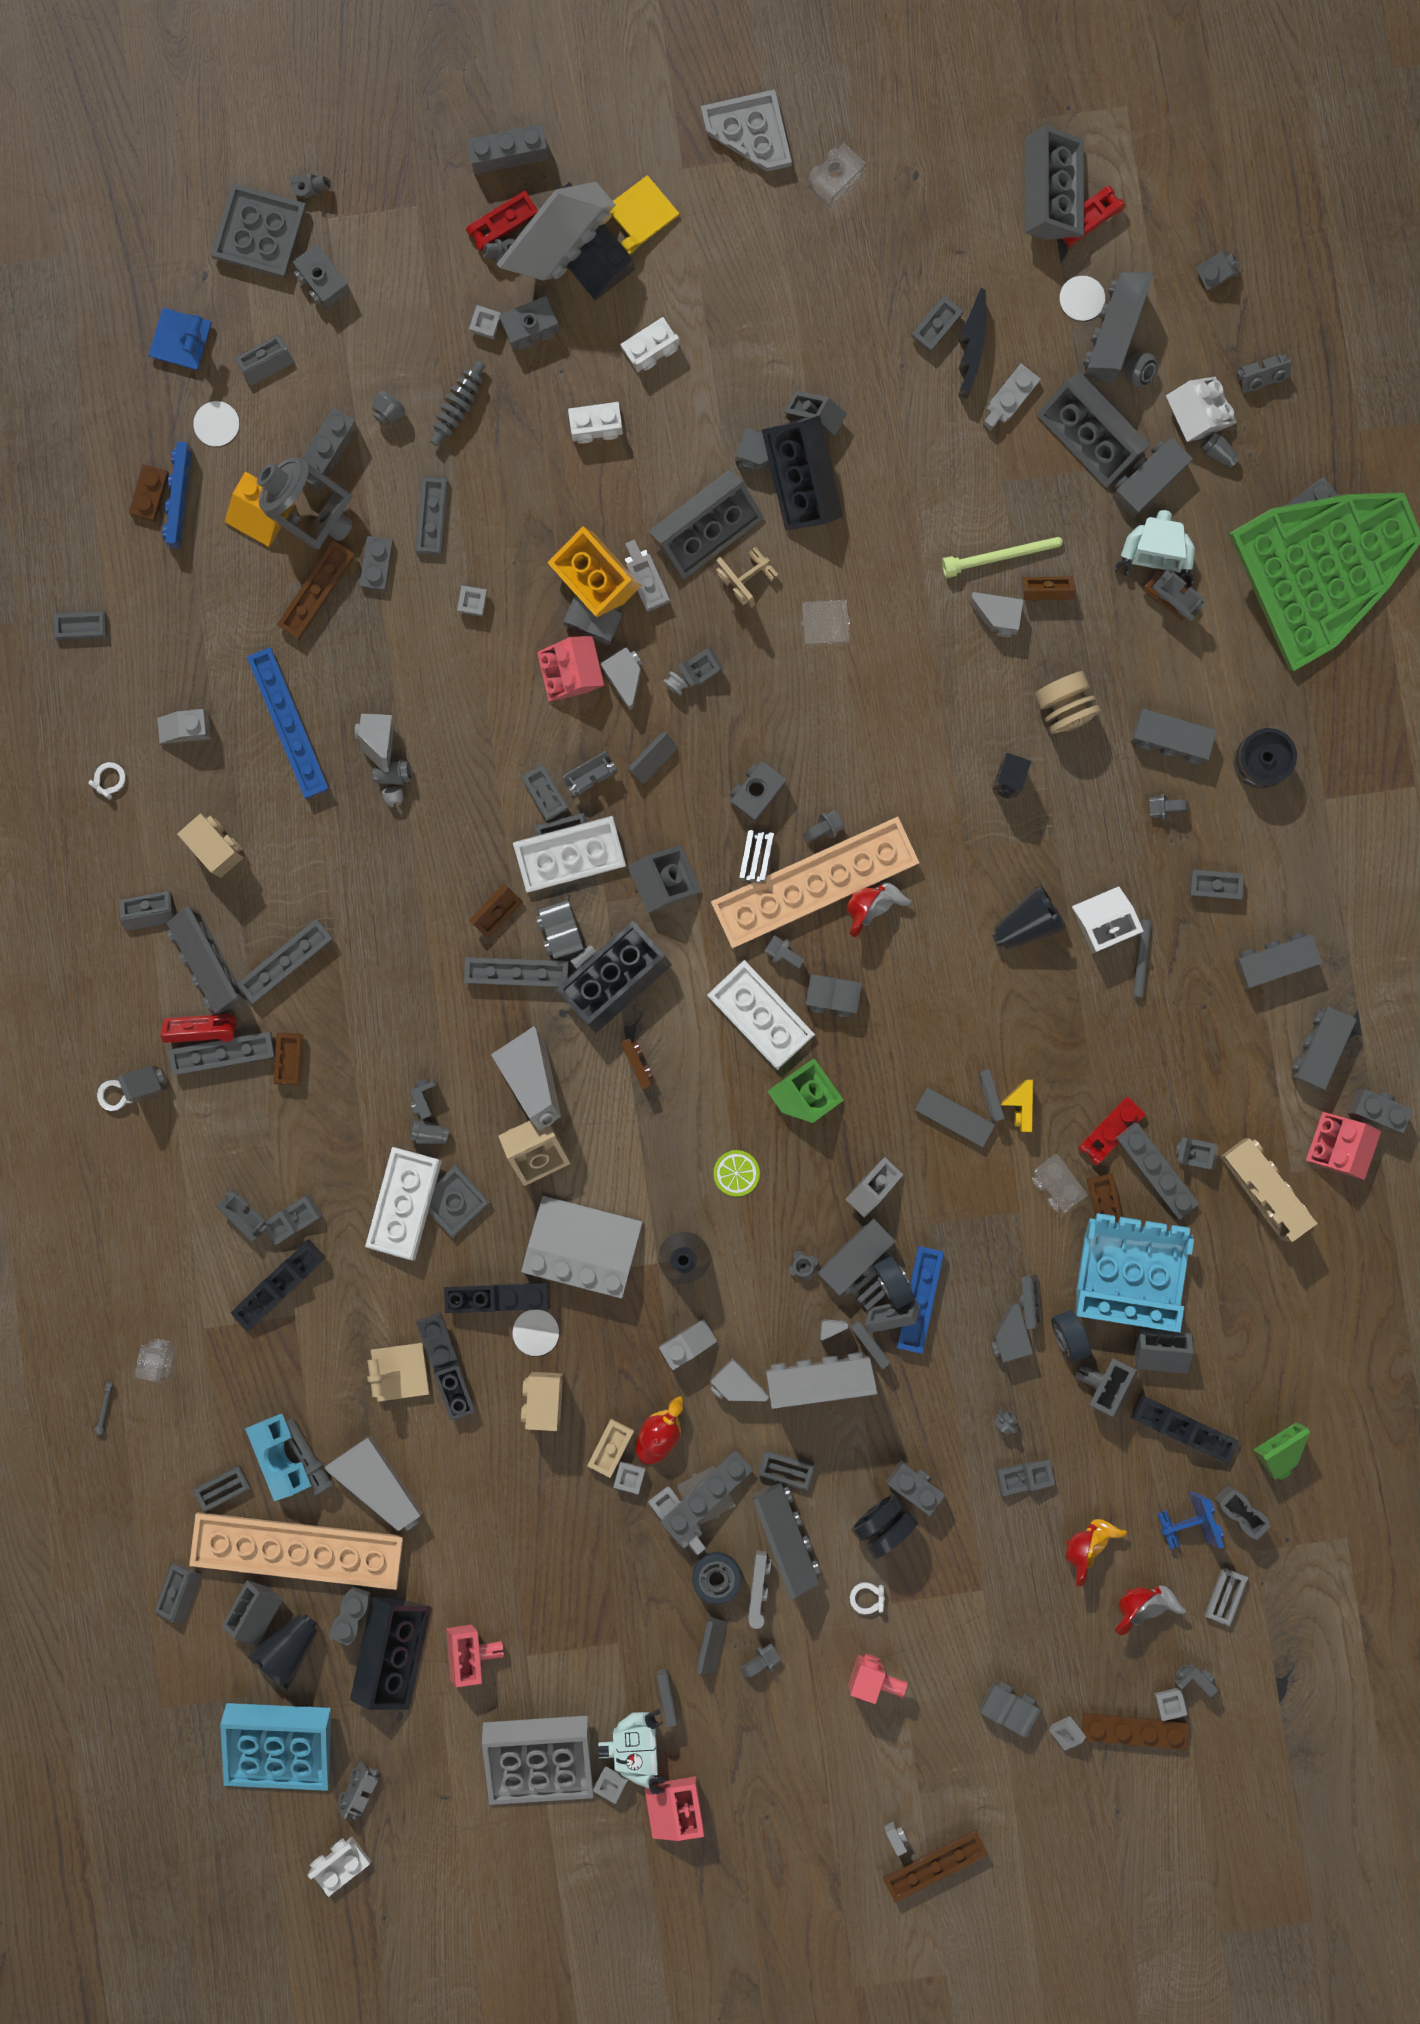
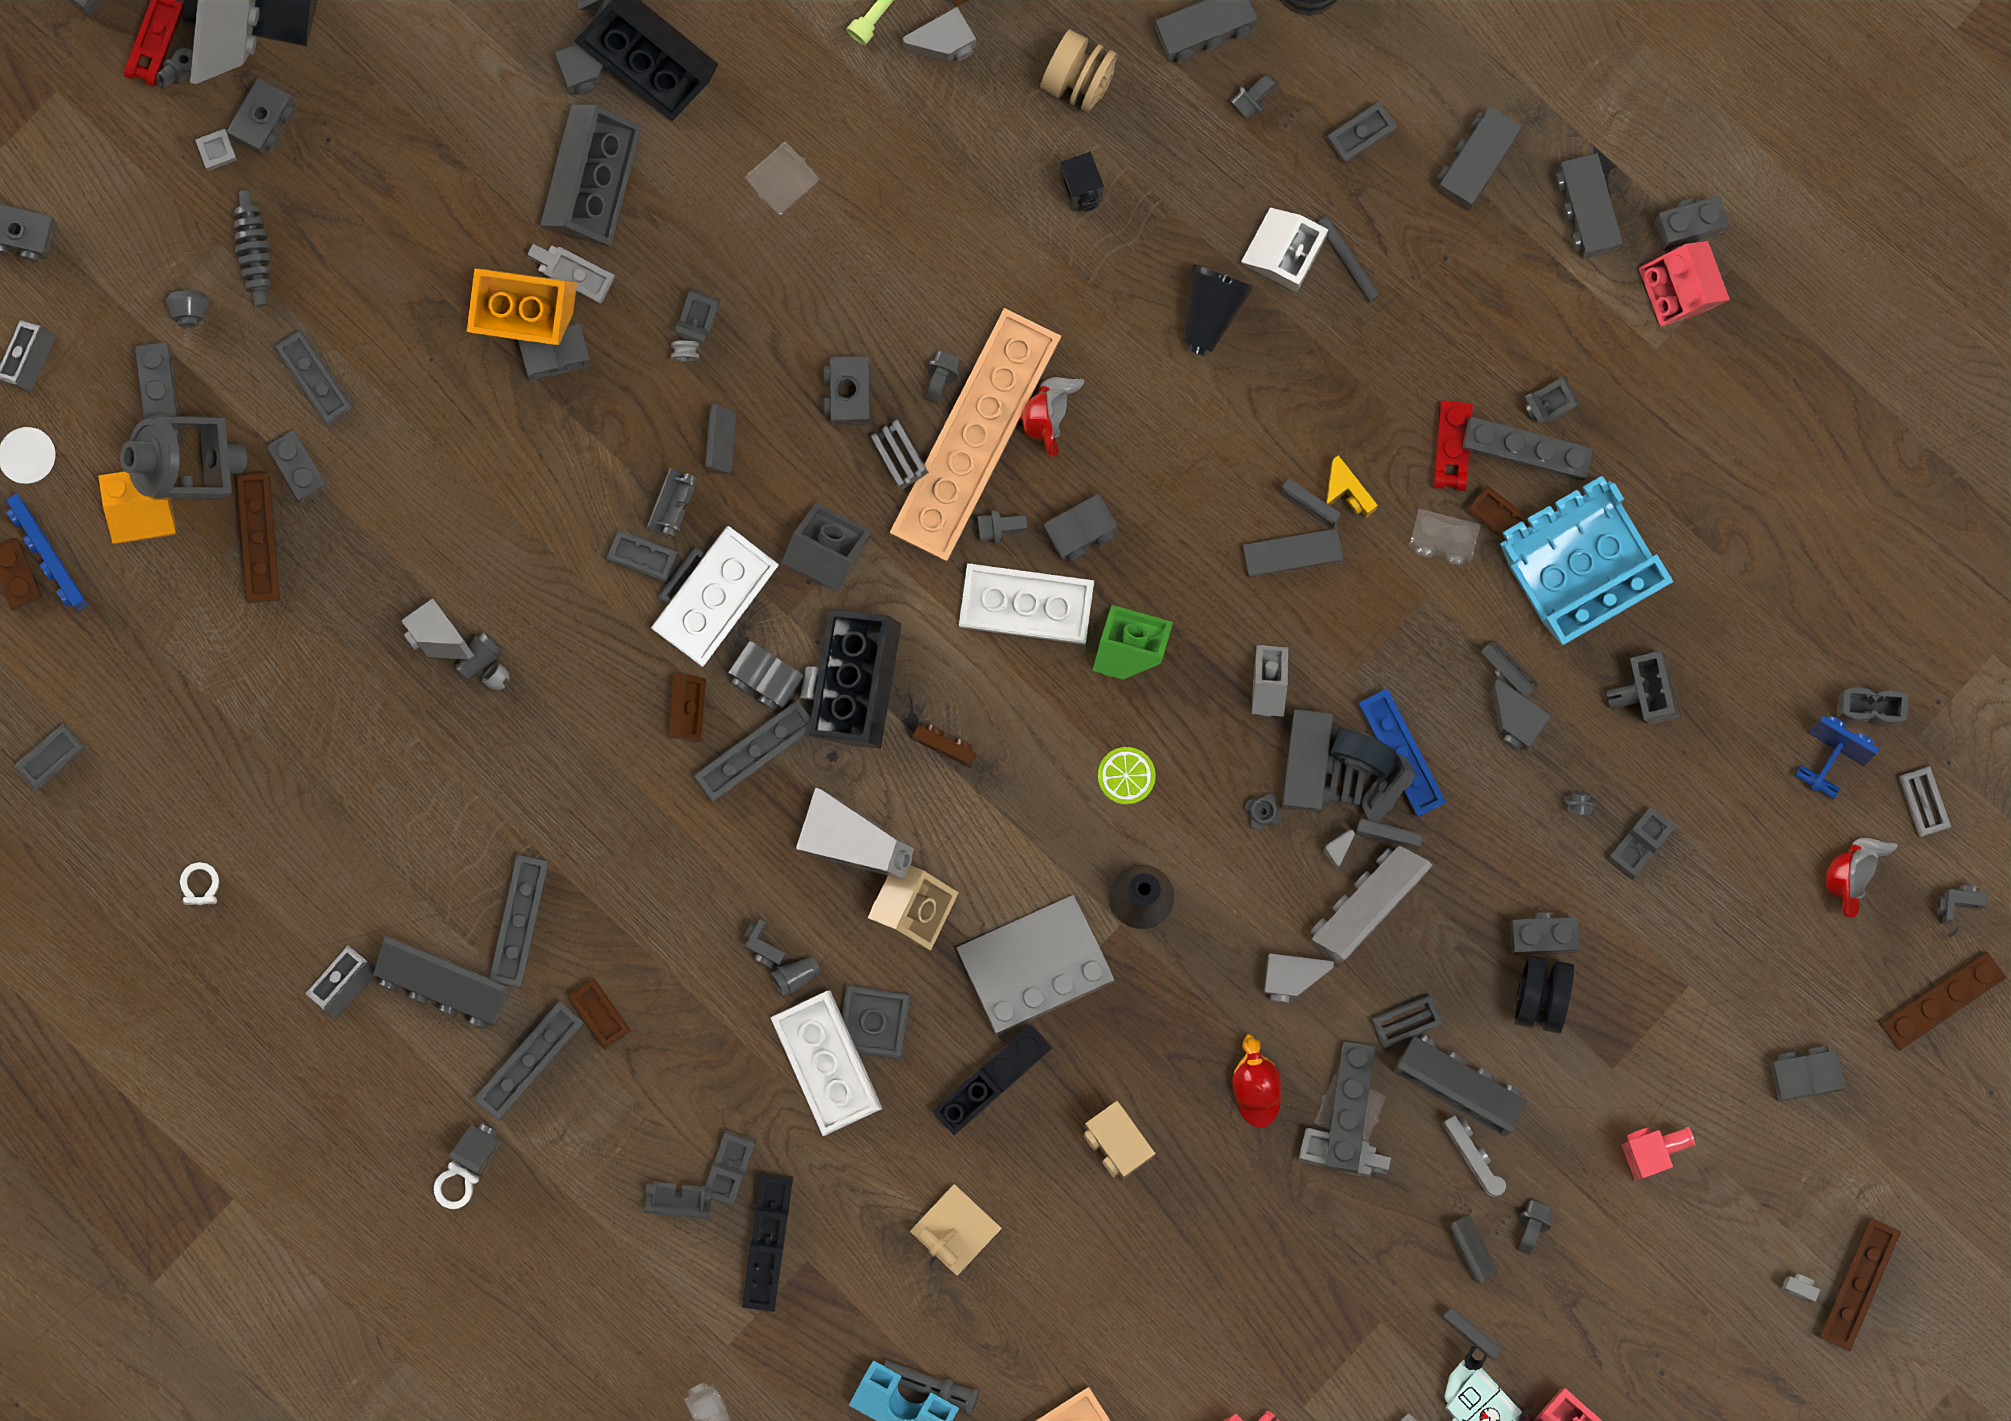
camera: 45 degrees left, 5 degrees down
(184, 726) = (233, 773): light grey slope -> none
(199, 1028) = (487, 1053): red plate -> none
(210, 845) = (356, 863): tan brick -> none
(288, 723) = (334, 688): blue plate -> none
(376, 1483) = (1014, 1354): light grey slope -> none
(446, 1366) = (996, 1186): black slope -> none
(472, 601) = (421, 427): light grey plate -> none
(535, 1332) = (1056, 1086): white sticker -> none
(570, 668) = (570, 416): coral slope -> none
(595, 422) = (402, 162): white bracket -> none
(610, 1448) = (1220, 1137): tan plate -> none
(624, 675) = (627, 382): light grey slope -> none
(629, 1477) = (1262, 1150): light grey plate -> none
(650, 345) = (396, 45): white bracket -> none
(687, 1344) = (1213, 976): light grey slope -> none
(720, 1592) = (1443, 1178): wheel -> none
(740, 590) = (654, 206): tan plate -> none
(877, 1590) = (1602, 1080): white piece -> none
(1067, 1733) = (1880, 1054): light grey plate -> none
(1071, 1336) = (1573, 670): black wheel -> none
(1087, 1545) = (1753, 857): hair -> none
(1163, 1351) = (1673, 614): dark grey brick -> none
(1170, 1704) = (1955, 946): light grey plate -> none
(1184, 1429) = (1754, 673): black slope -> none
(1268, 1190) = (1647, 382): tan wedge -> none
(1283, 1451) = (1864, 619): bright green slope -> none

